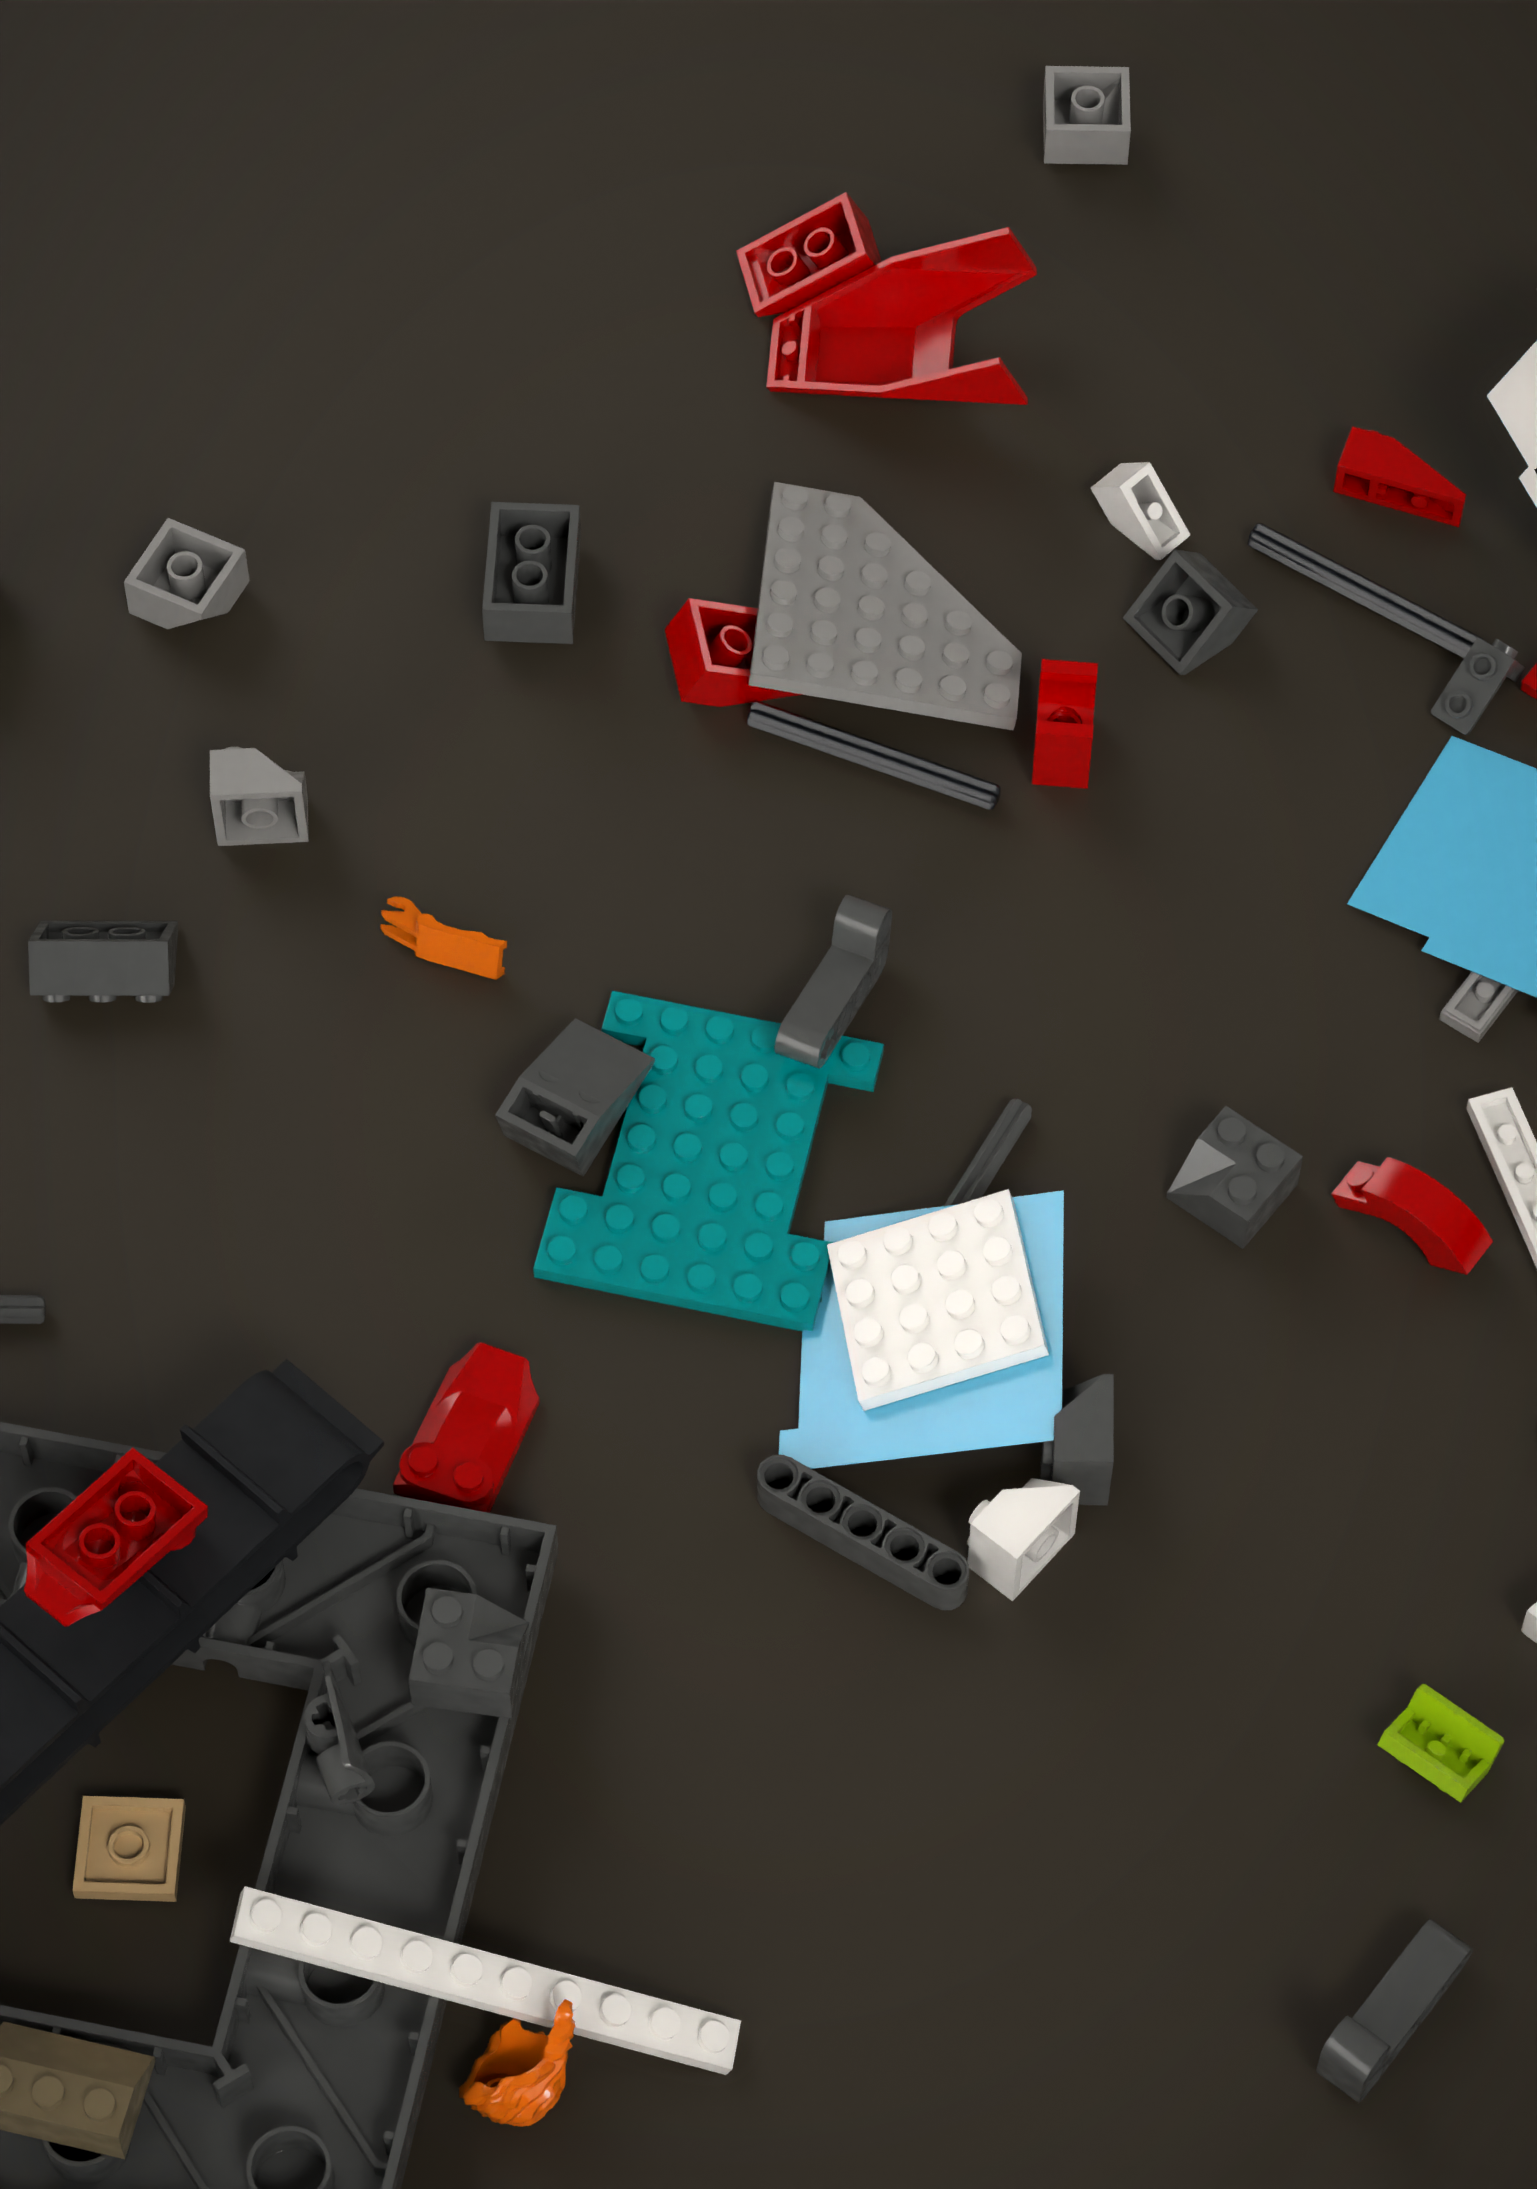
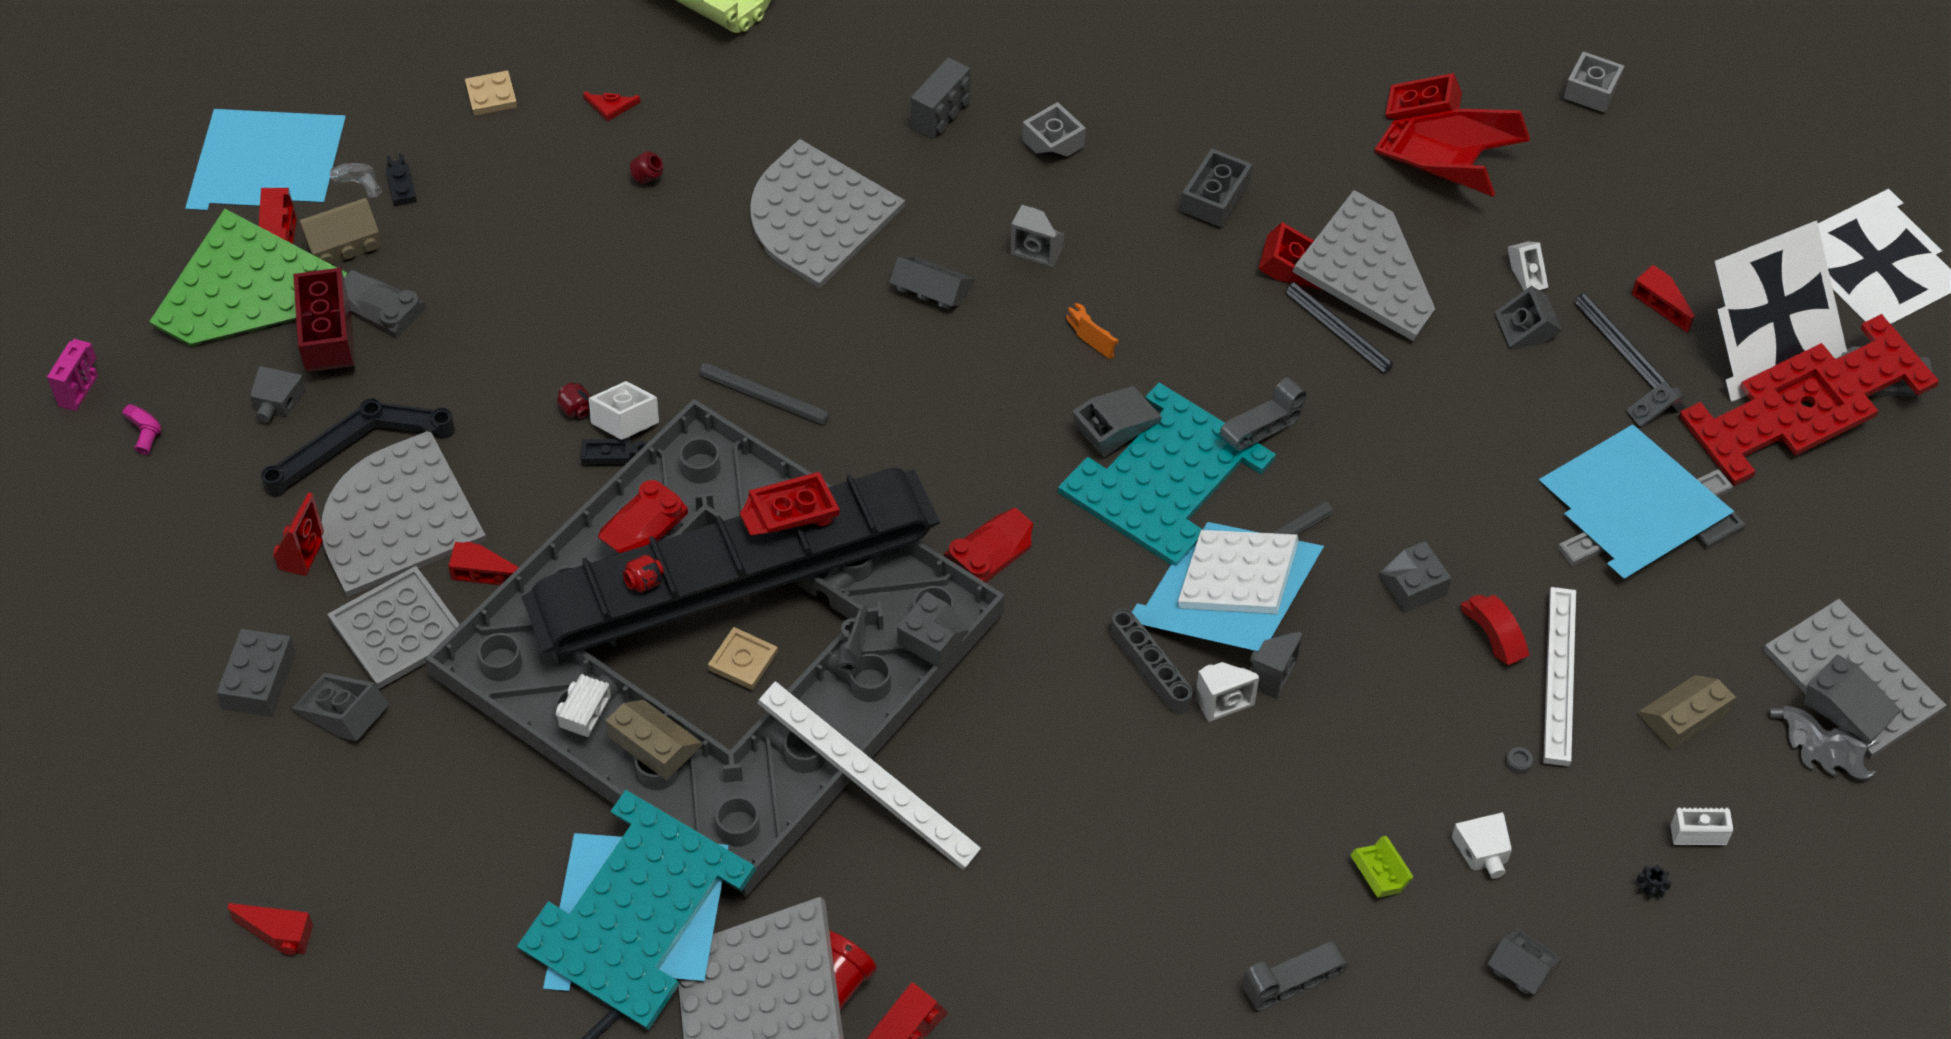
camera: 25 degrees right, 5 degrees down
(521, 2071) = (866, 825): orange hair -> none
(1064, 723) = (1438, 346): red piece -> none

